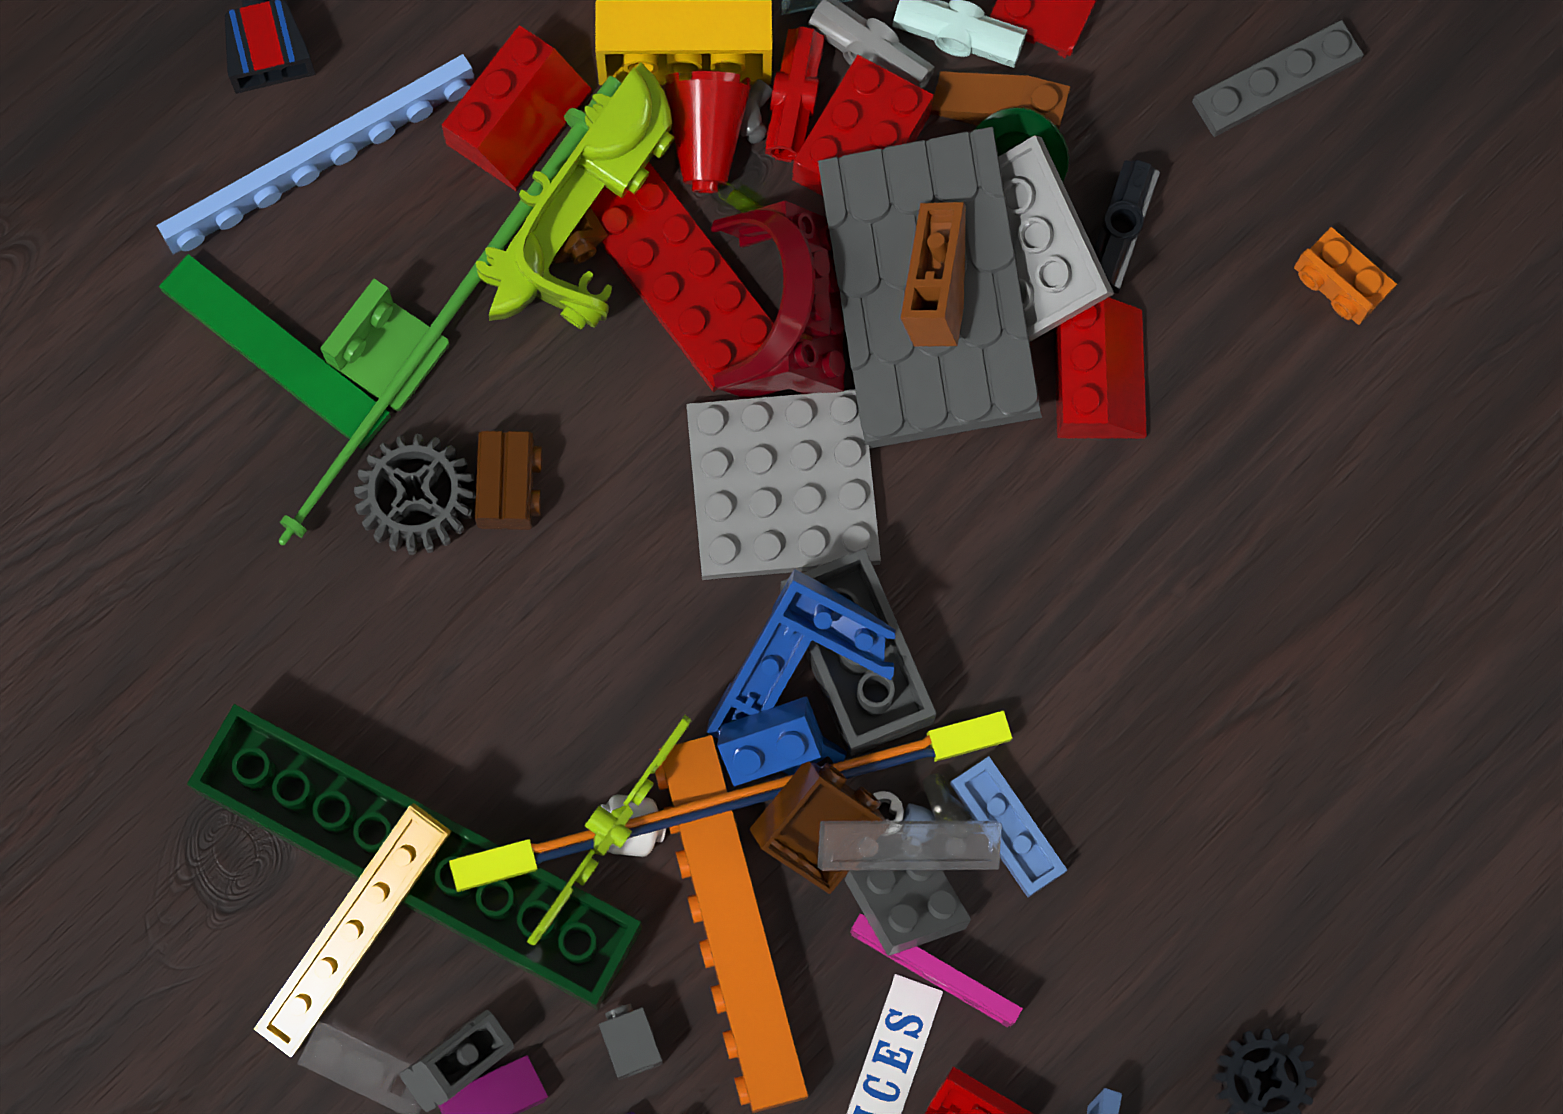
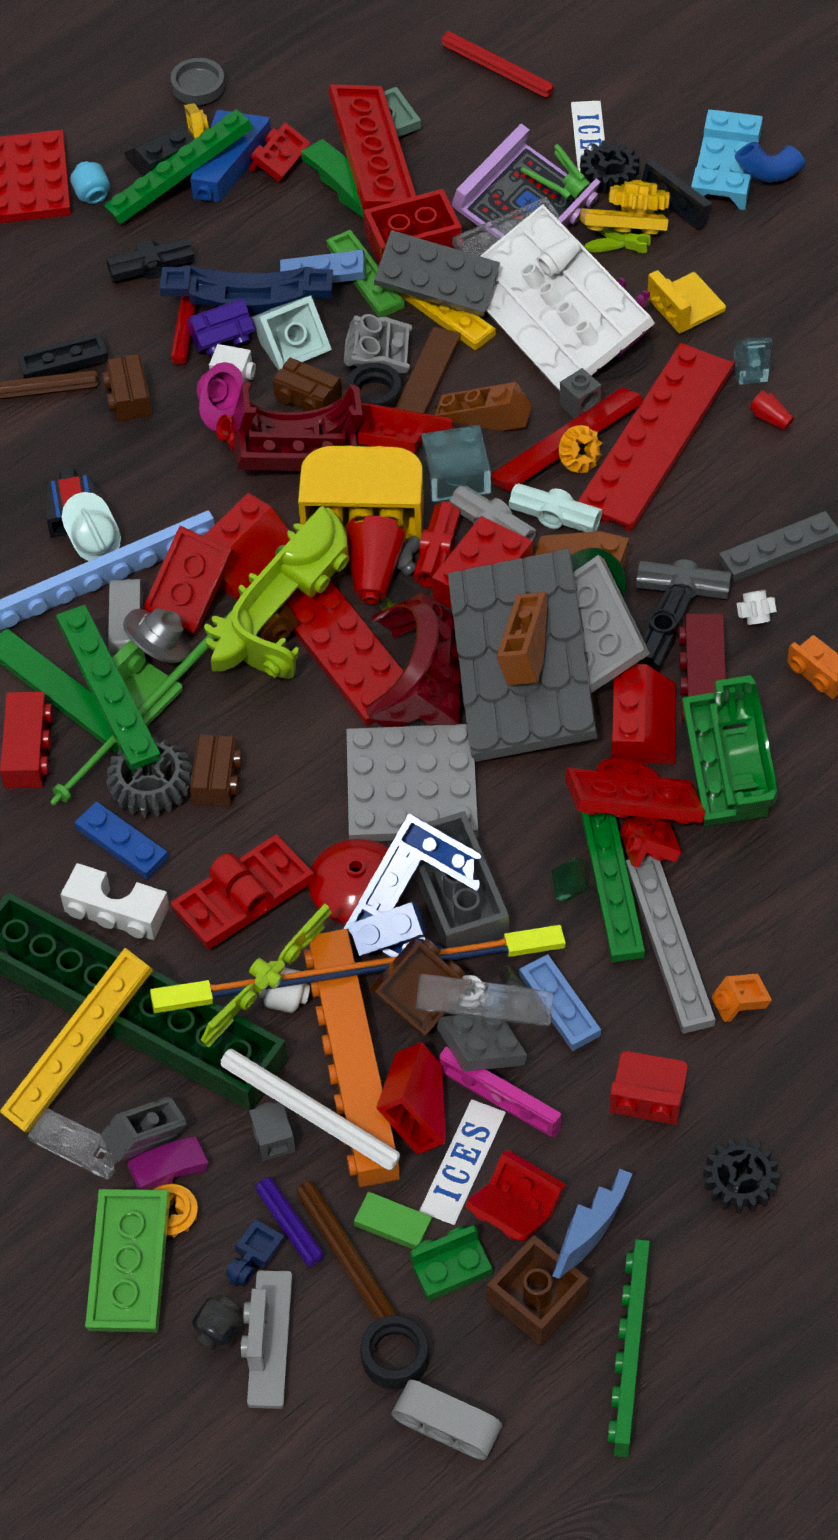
camera: 10 degrees right, 20 degrees down
(233, 440) = (25, 740): none -> red brick
(294, 83) = (90, 525): none -> light aqua piece
(344, 365) = (108, 687): none -> green plate
(357, 229) = (123, 597): none -> light grey beam
(383, 593) = (121, 840): none -> blue plate
(406, 269) = (157, 634): none -> flat silver hat
(419, 714) = (137, 914): none -> white arch
(444, 172) = (189, 577): none -> red tile
(560, 672) = (241, 890): none -> red plate
(680, 645) = (336, 882): none -> red dish
(683, 1028) = (310, 1109): none -> white axle
(821, 989) = (415, 1098): none -> red slope
(1012, 635) = (569, 879): none -> clear green plate
(1067, 623) = (613, 887): none -> green plate
(1095, 502) = (633, 789): none -> red plate
(1120, 572) = (649, 837): none -> red bracket
(1135, 952) = (648, 1087): none -> red bracket
(1147, 140) = (684, 575): none -> dark grey piece
(1153, 728) = (670, 945): none -> light grey plate
(1182, 297) = (703, 654): none -> dark red brick
(1228, 442) = (732, 764): none -> green piece
(1251, 187) = (756, 607): none -> white gear
(1252, 806) = (740, 994): none -> orange bracket

